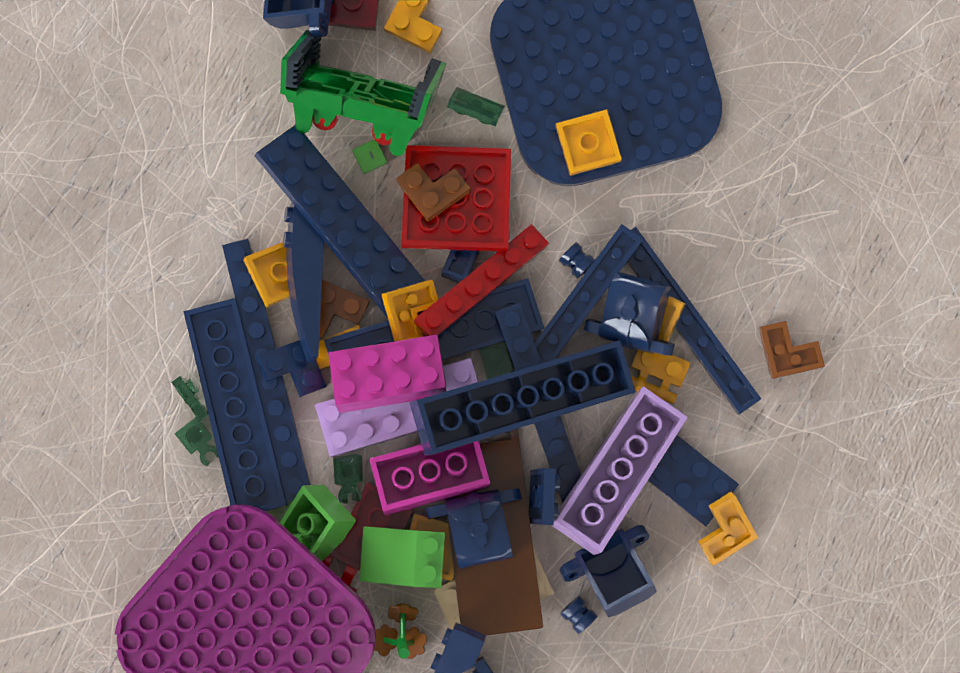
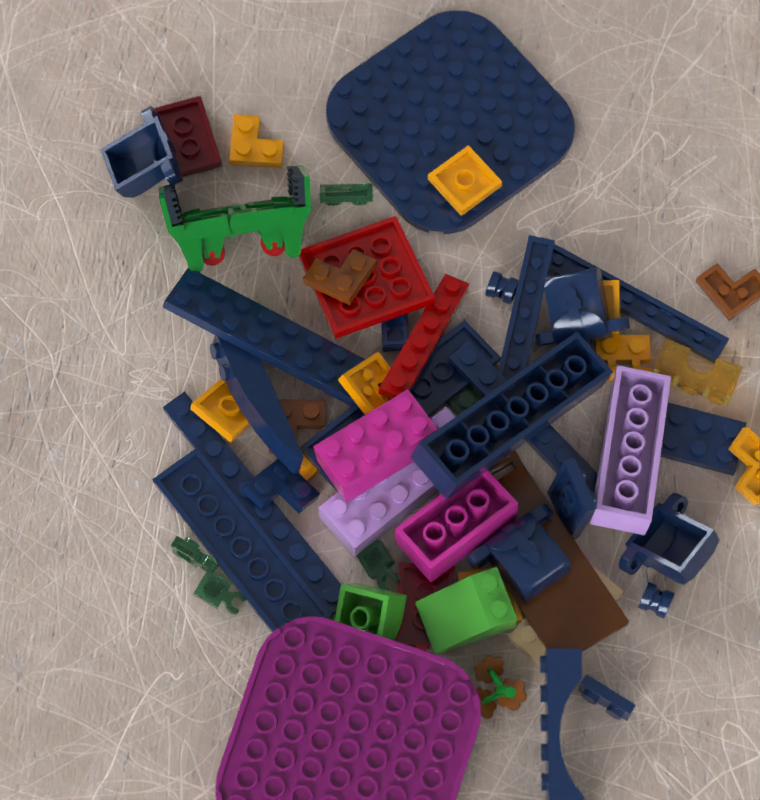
camera: 20 degrees left, 15 degrees down
(369, 156) = (266, 275): bright green tile -> none
(697, 404) = (715, 384): none -> clear yellow arch

